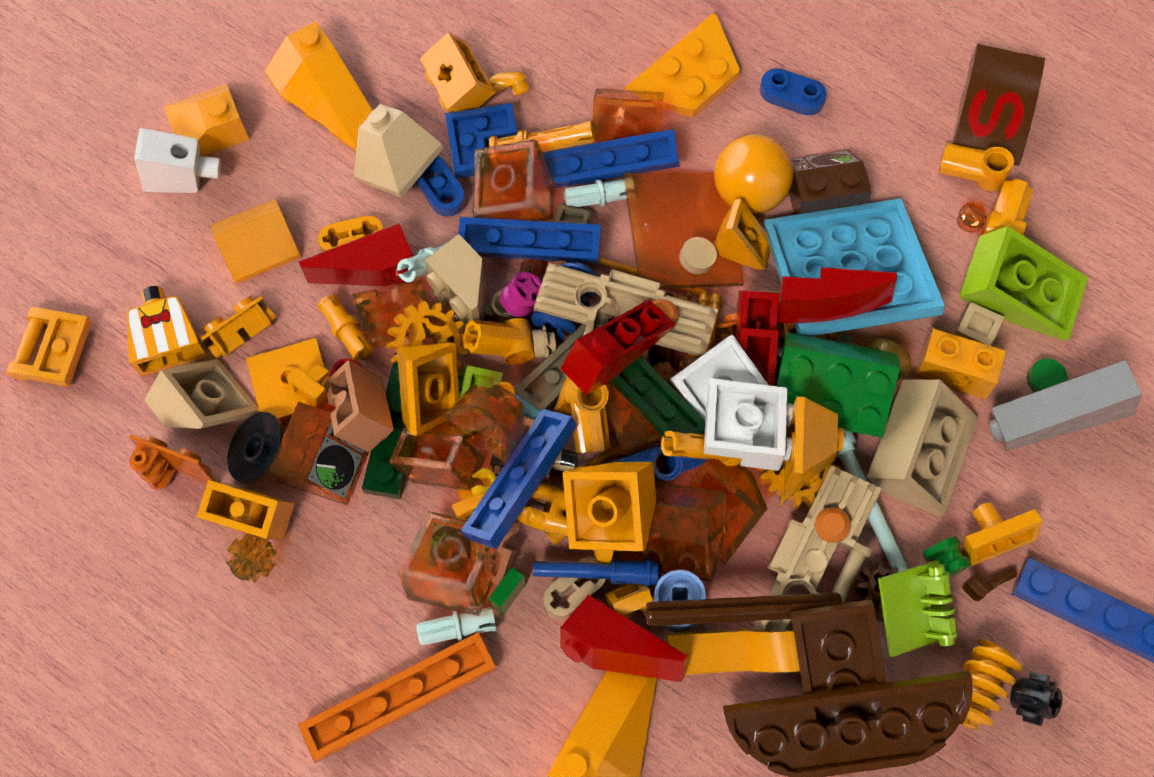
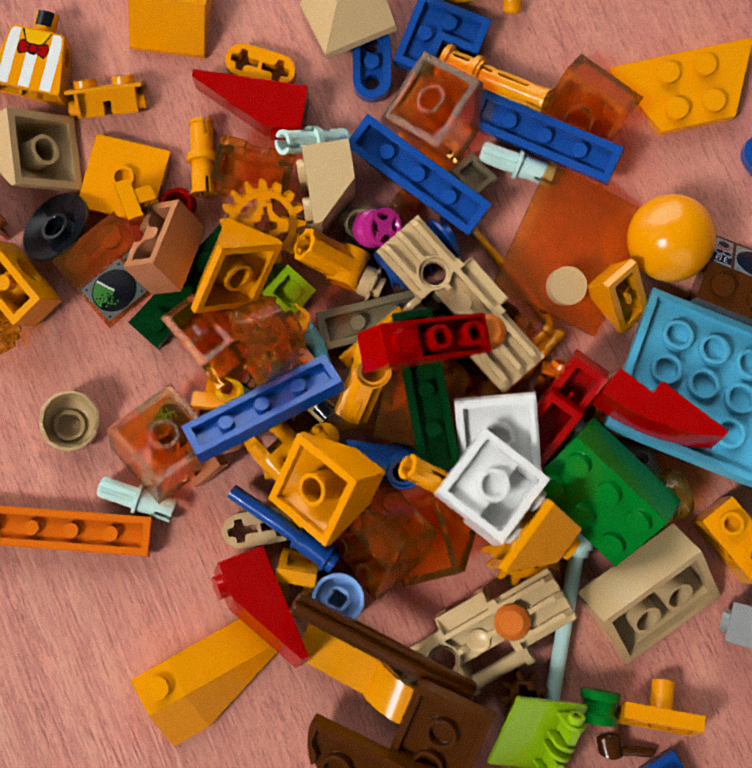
camera: 25 degrees right, 15 degrees up
(359, 594) = (69, 421): none -> tan hair
(507, 591) = (197, 495): green tile -> none

